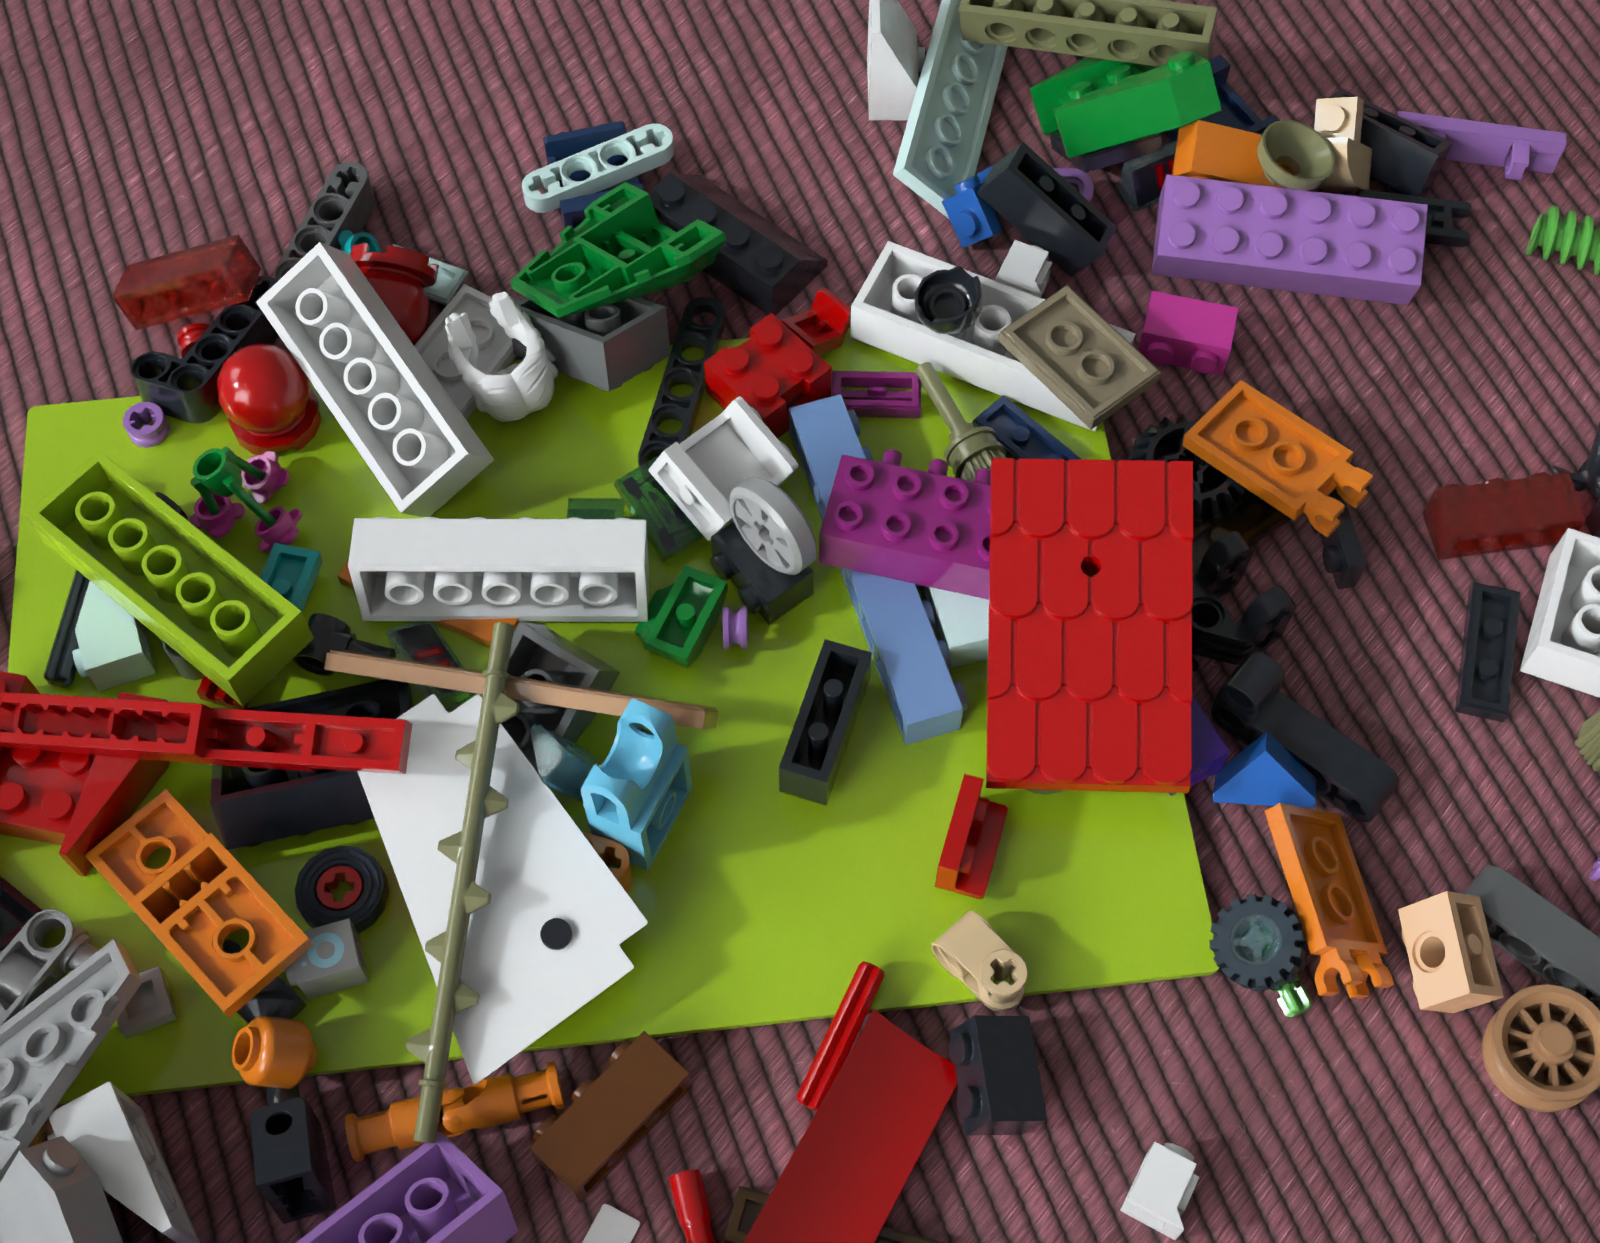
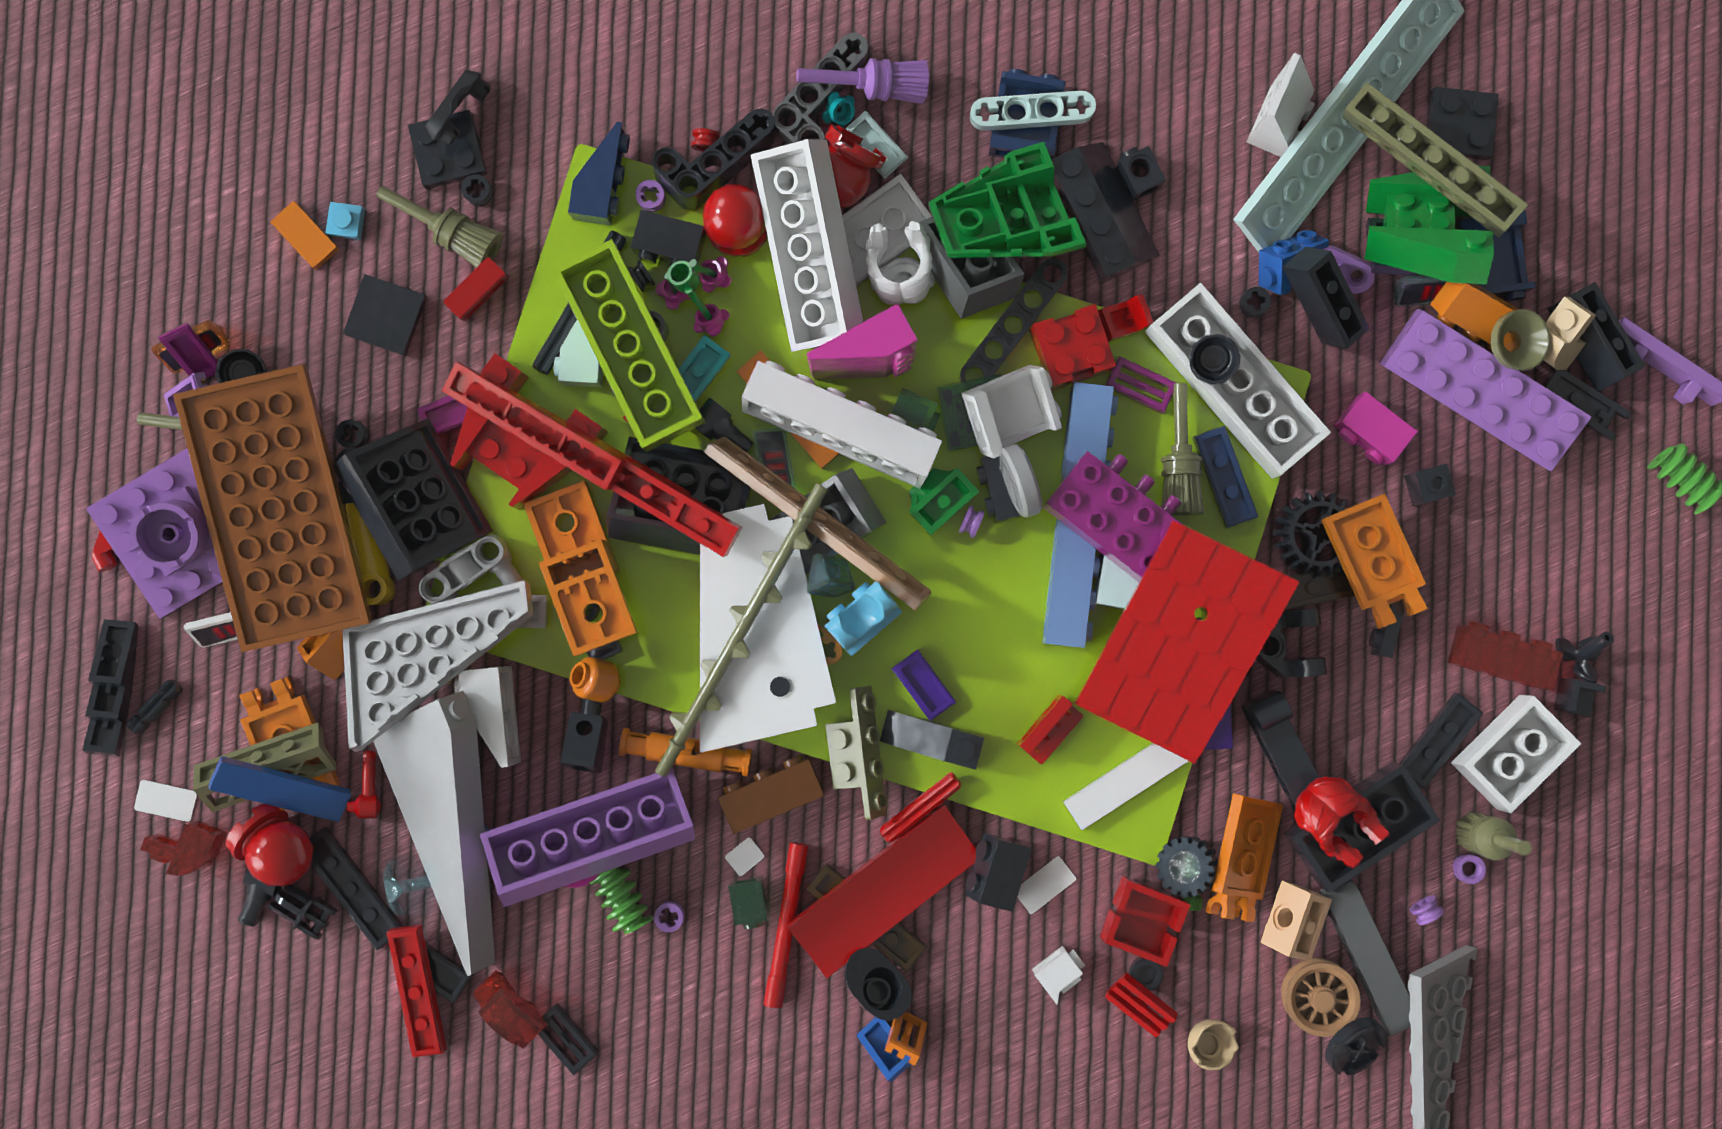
camera: 30 degrees right, 25 degrees up
(67, 422) = (596, 184): none -> dark blue slope
(169, 452) = (667, 239): none -> black brick
(187, 282) = (712, 94): clear red brick -> none
(323, 874) = (681, 582): black bush -> none
(331, 963) = (650, 635): light grey brick -> none
(394, 197) = (878, 79): none -> medium lavender piece
(497, 448) = (869, 350): none -> dark pink slope
(711, 996) = (856, 753): none -> olive bracket
(760, 183) = (1140, 186): none -> black brick
(767, 864) = (923, 685): none -> dark purple tile
(815, 926) = (932, 739): none -> slope
(825, 722) = (998, 616): black brick -> none
(969, 252) = (1249, 310): none -> black bush
(976, 956) = (1020, 798): tan piece -> none
(1025, 268) = (1286, 335): white window -> none
(1076, 1075) = (1045, 885): none -> white sticker
(1079, 357) = (1282, 436): dark tan tile -> none
(1110, 873) = (1121, 784): none -> white tile
(1237, 1047) = (1142, 921): none -> red piece
(1265, 776) = (1249, 767): blue slope -> none
(1287, 1136) = (1146, 972): none -> black tile
(1289, 364) = (1429, 485): none -> black brick
(1303, 1202) = (1138, 1008): none -> red tile
(1392, 770) = (1320, 812): none -> red hair
(1440, 1189) = (1212, 1044): none -> tan hair
(1458, 789) = (1398, 806): none -> black brick

